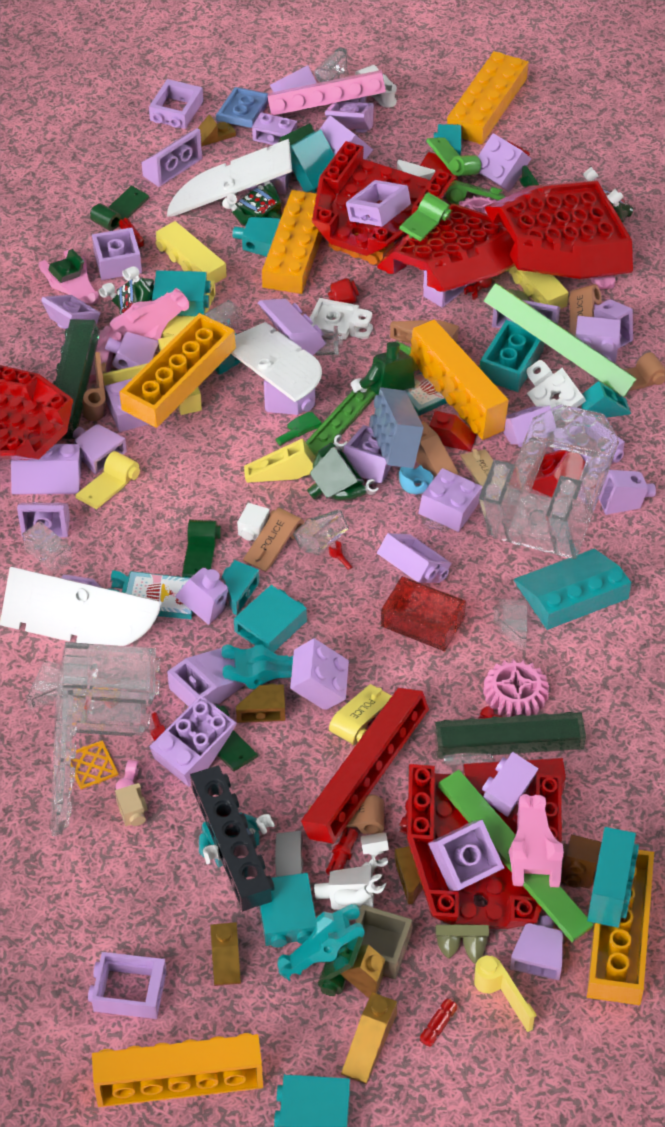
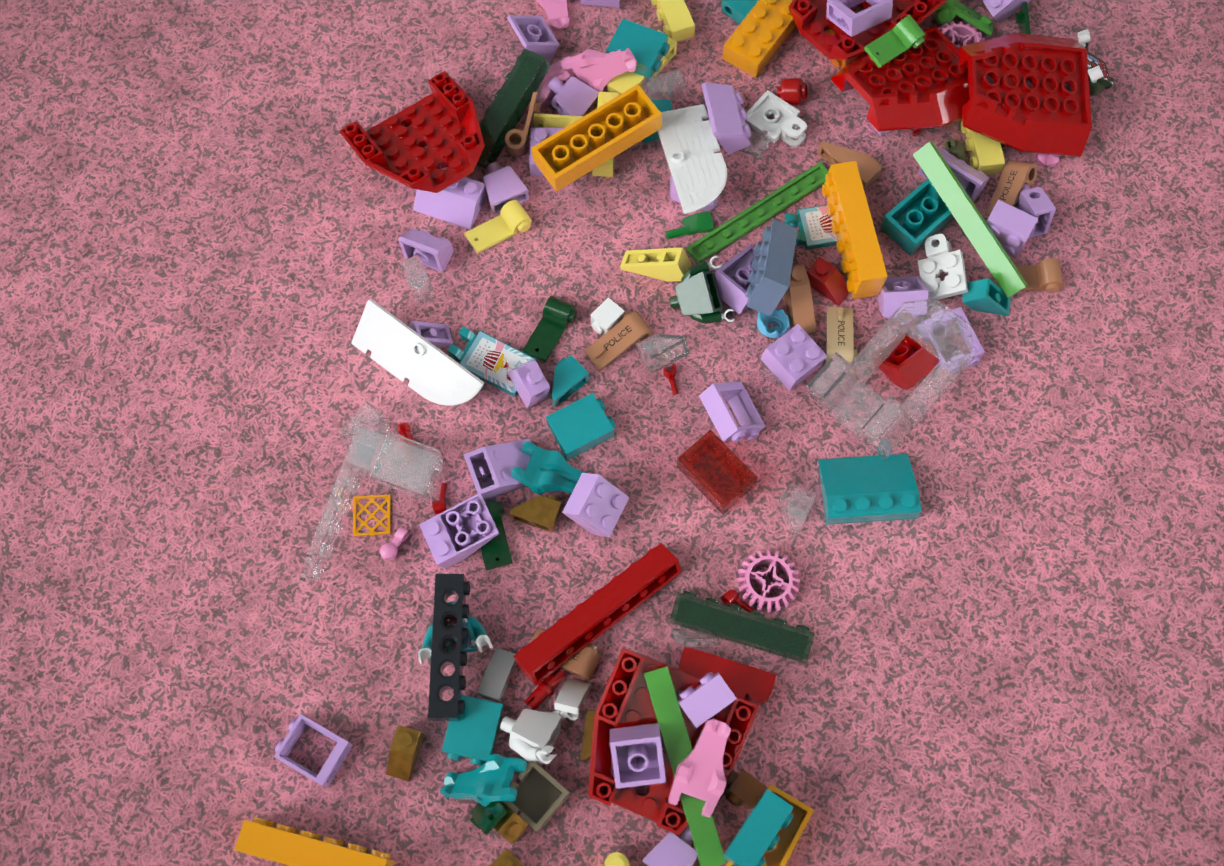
camera: 25 degrees right, 20 degrees up
(131, 805) = (385, 572): tan brick -> none
(133, 291) = (594, 33): torso -> none
(352, 719) = (608, 558): light yellow door -> none
(389, 370) = (792, 201): dark green torso -> none
(473, 936) = (622, 819): olive tile -> none
(624, 491) = (962, 406): lavender torso -> none

